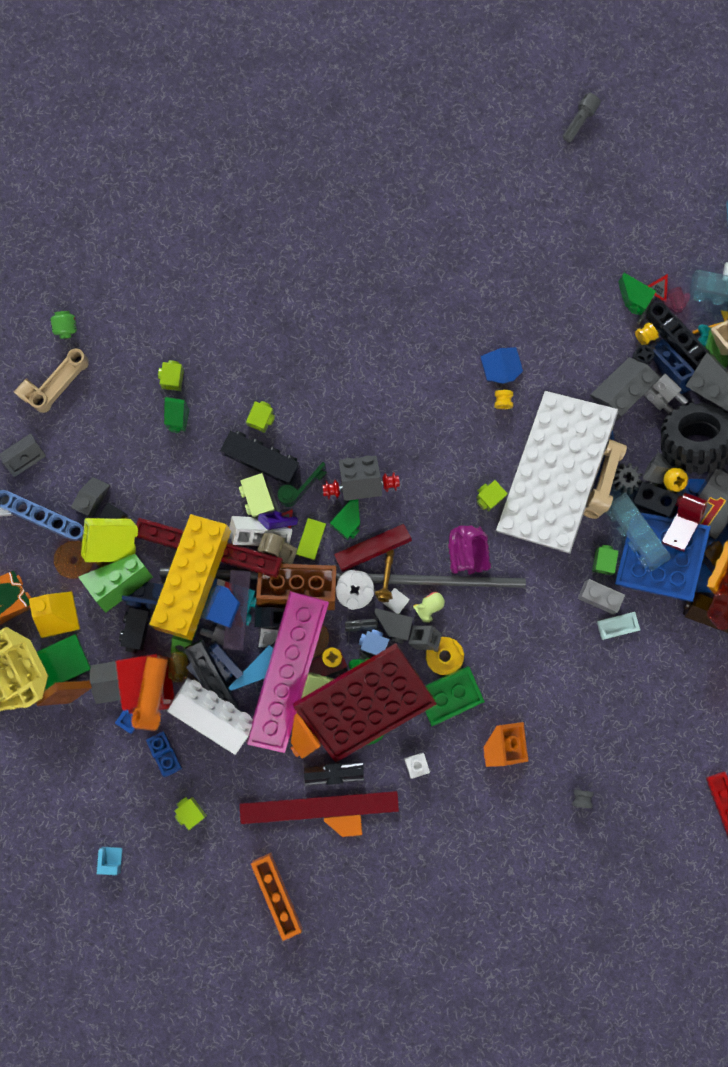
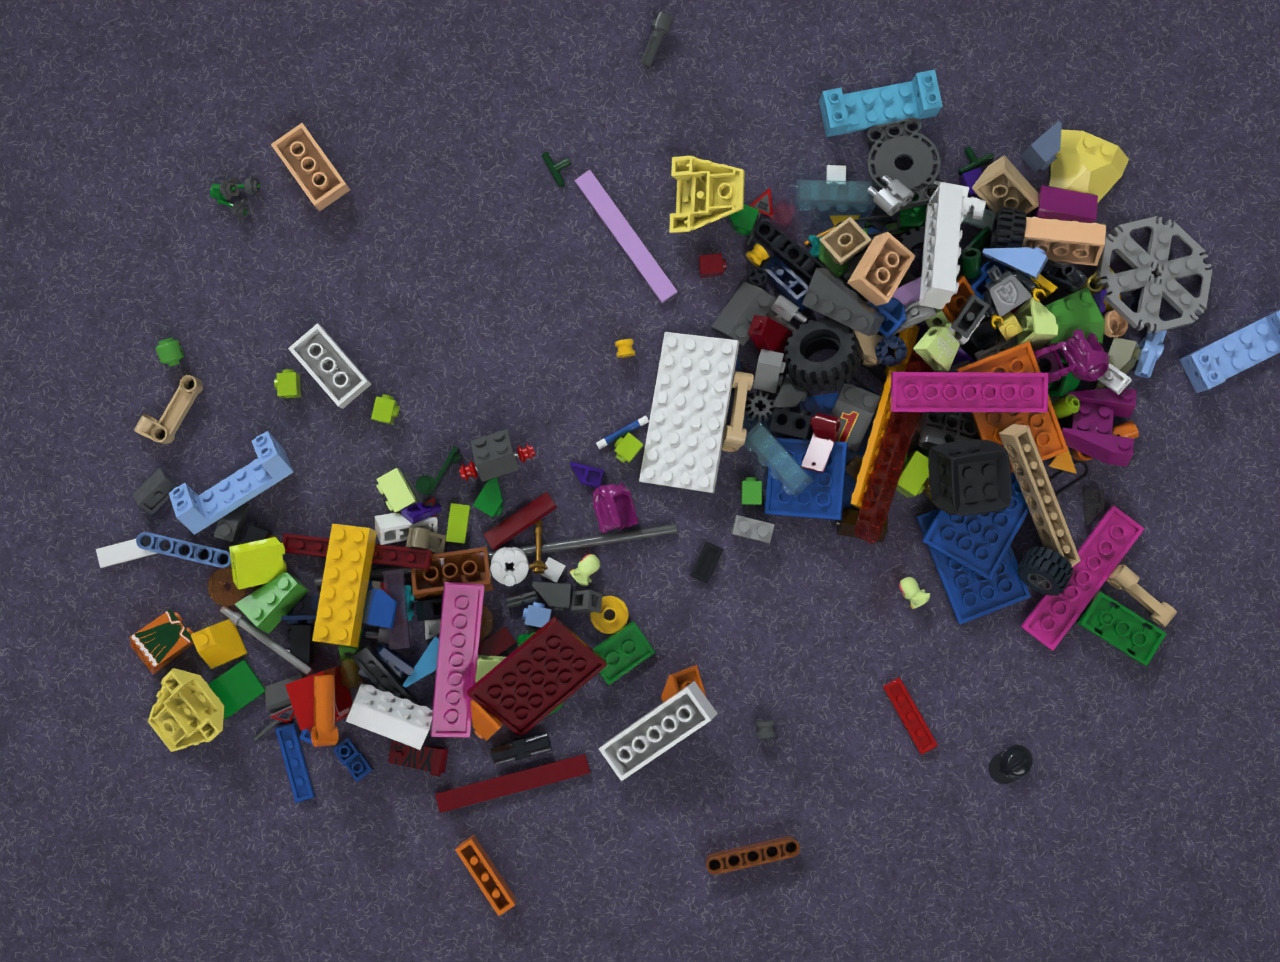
camera: 10 degrees left, 5 degrees up
(64, 693) = (243, 720): dark orange tile -> none
(79, 595) = (238, 620): none -> light grey bar
(94, 469) = (246, 483): none -> light blue plate
(105, 696) = (283, 715): none -> dark grey piece
(105, 746) = (295, 762): none -> blue tile
(109, 860) = (320, 870): medium azure panel -> none
(152, 181) = (230, 188): none -> dark grey plant
(175, 414) = (300, 424): green slope -> none
(189, 813) = (388, 811): lime brick -> none
(215, 365) = (329, 366): none -> white brick
(232, 176) = (310, 167): none -> light nougat brick
(234, 765) = (427, 758): none -> dark red door
(260, 458) = (391, 451): black brick -> none
(332, 657) = (501, 638): yellow wheel -> none
(345, 825) = (541, 795): orange tile -> none
(416, 765) = (599, 726): white brick -> none
(446, 515) = (588, 475): none -> dark purple tile
(464, 220) = (555, 168): none -> dark green piece
(477, 779) = (658, 731): none -> white brick
(488, 479) = (622, 432): none -> blue bar
(502, 365) = (618, 313): blue slope -> none
(521, 295) = (625, 236): none -> lavender tile
(549, 621) = (706, 562): none -> black tile
(559, 926) = (762, 857): none -> dark orange beam
(600, 336) = (711, 265): none -> dark red brick
(607, 263) = (704, 192): none -> light yellow wedge
(618, 625) = (774, 554): light aqua tile -> none
(642, 445) = (768, 371): none -> light grey brick
(648, 415) = (768, 334): none -> dark red slope
(673, 483) = (805, 406): yellow piece -> none

